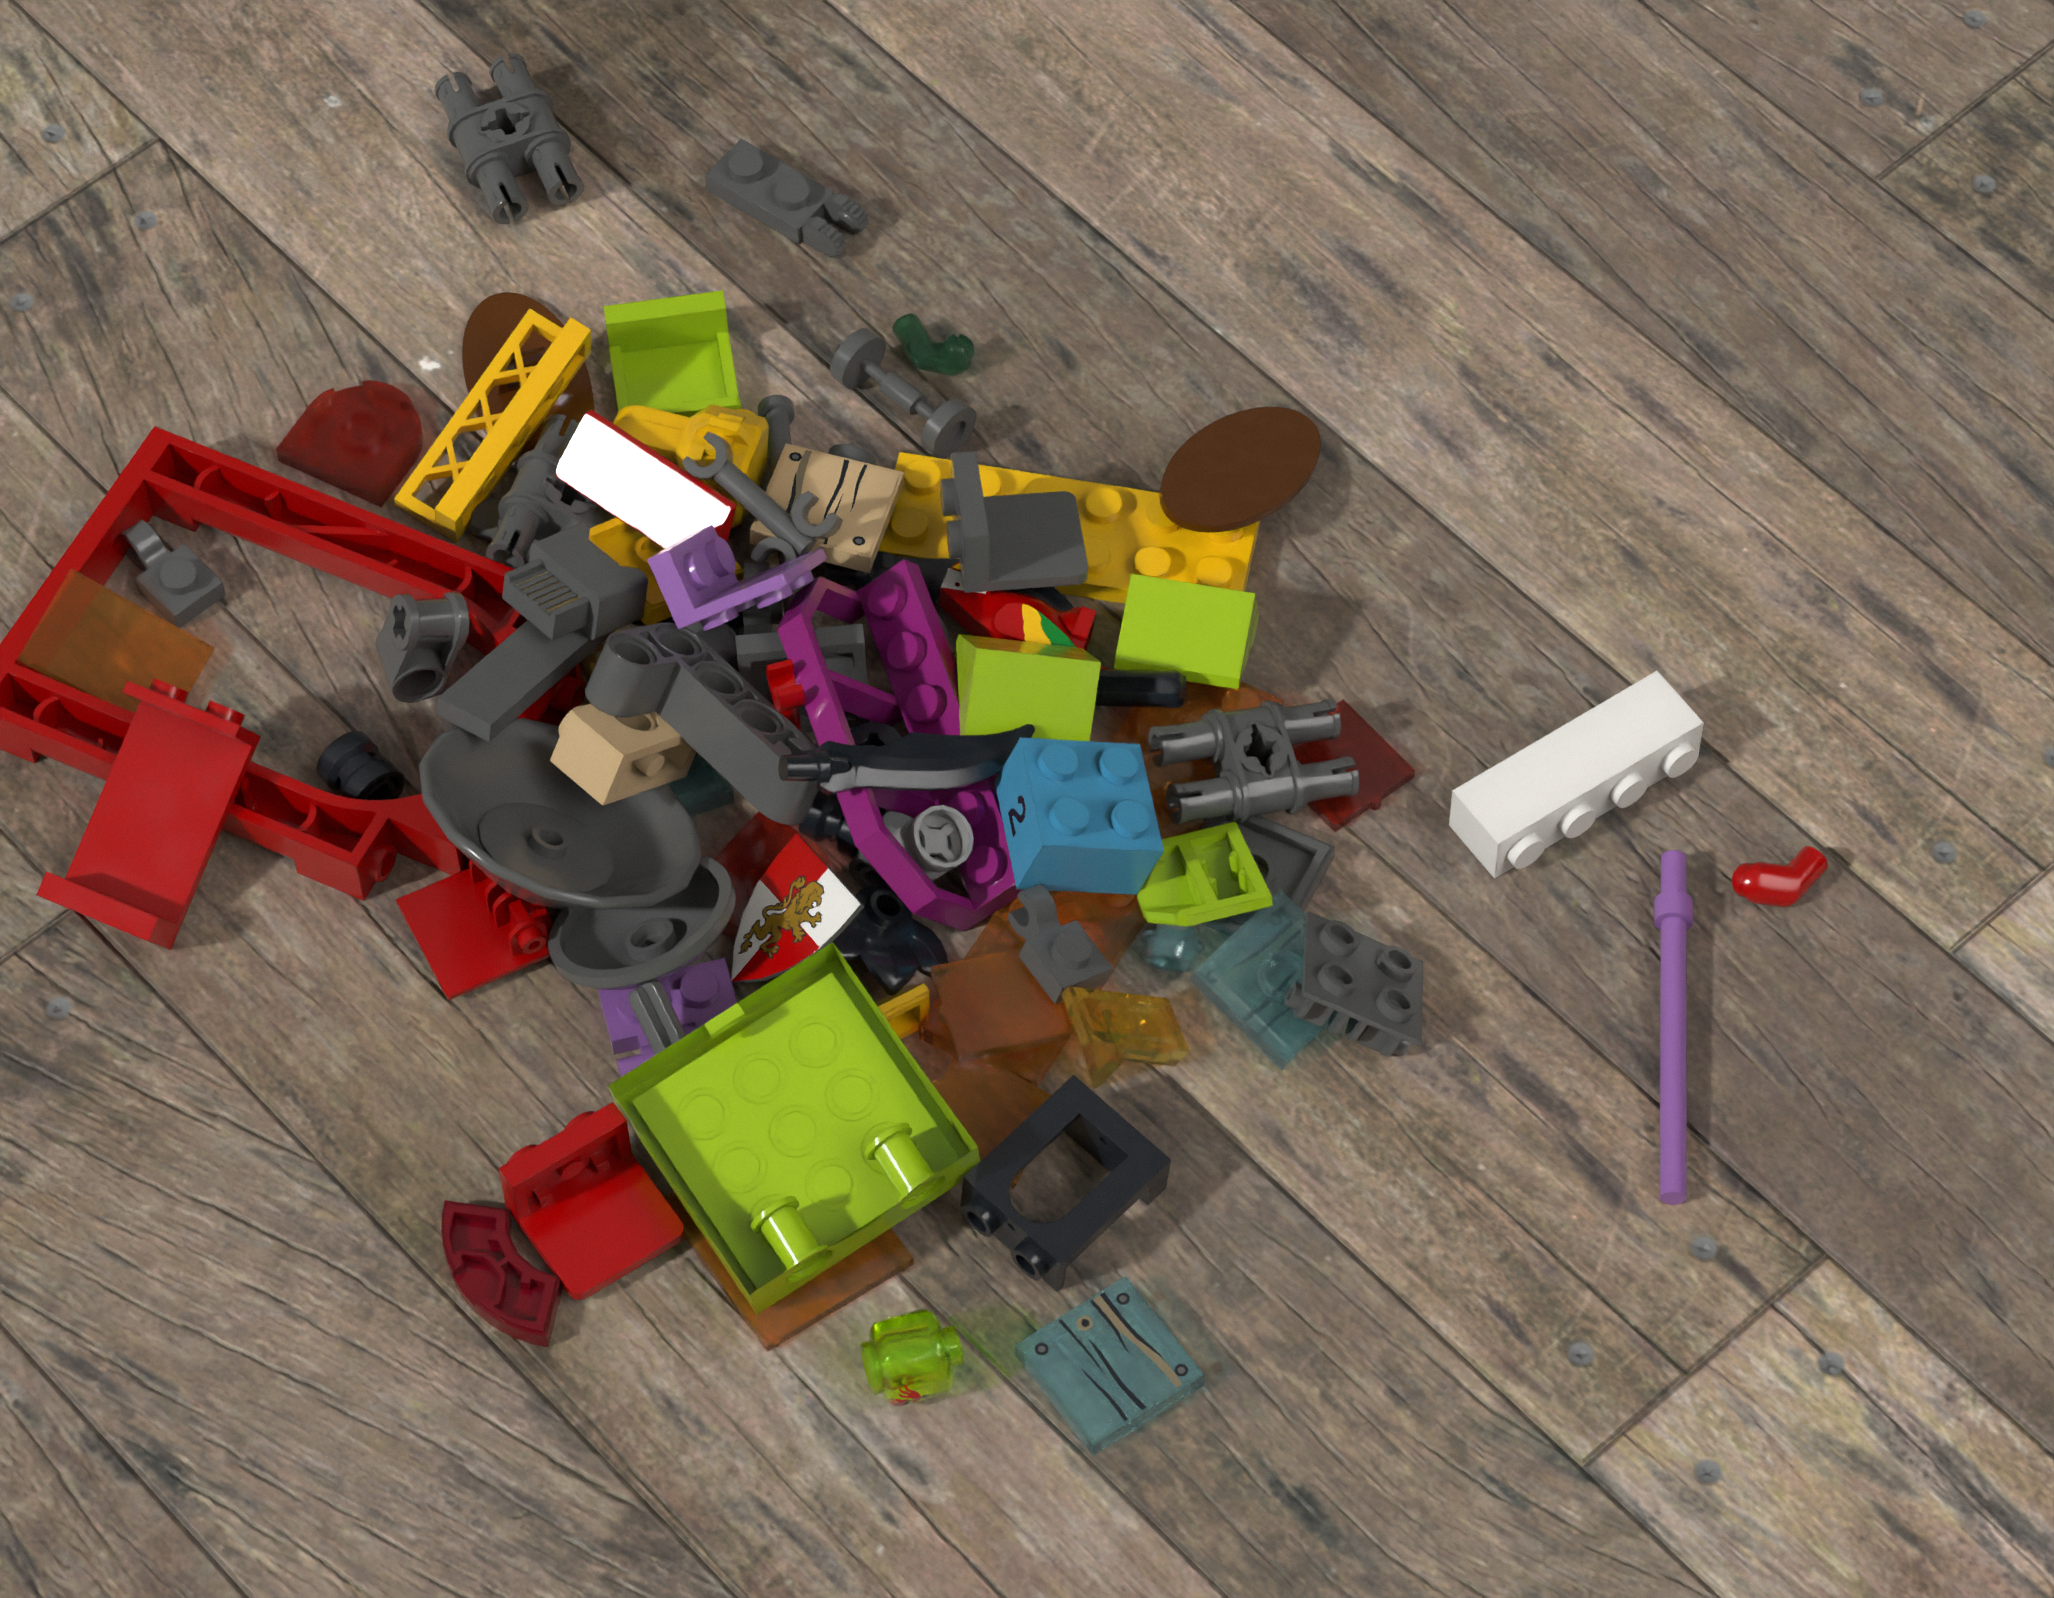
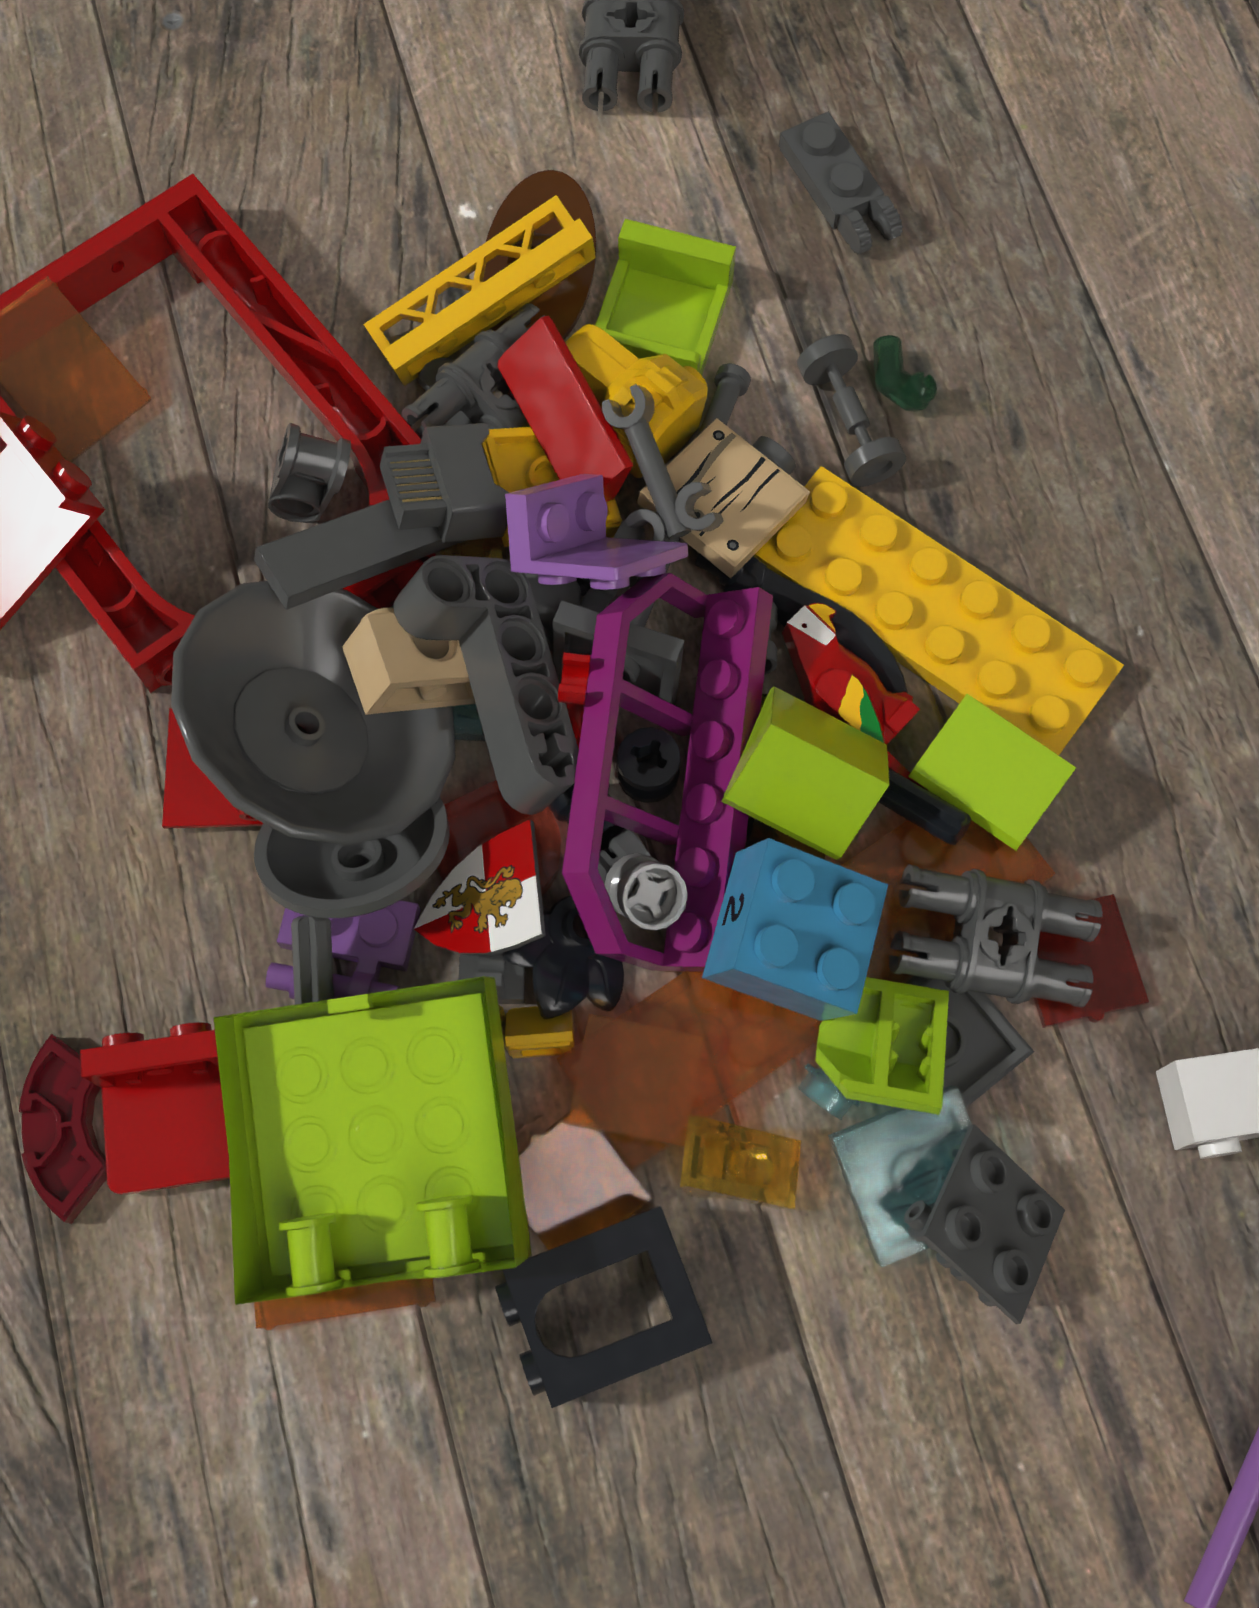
camera: 25 degrees right, 15 degrees up
(172, 582) = (152, 321): dark grey plate -> none
(354, 769) = (197, 571): black wheel -> none
(356, 440) = (369, 255): clear red tile -> none
(909, 763) = (651, 813): black sword -> none
(910, 1357) = (369, 1424): clear neon green head -> none
(1010, 538) = (875, 601): dark grey bracket -> none
(1053, 952) = (713, 1064): dark grey plate -> none
(1109, 1365) = (558, 1518): clear light blue tile -> none
(1240, 469) = (1121, 620): reddish brown shield -> none

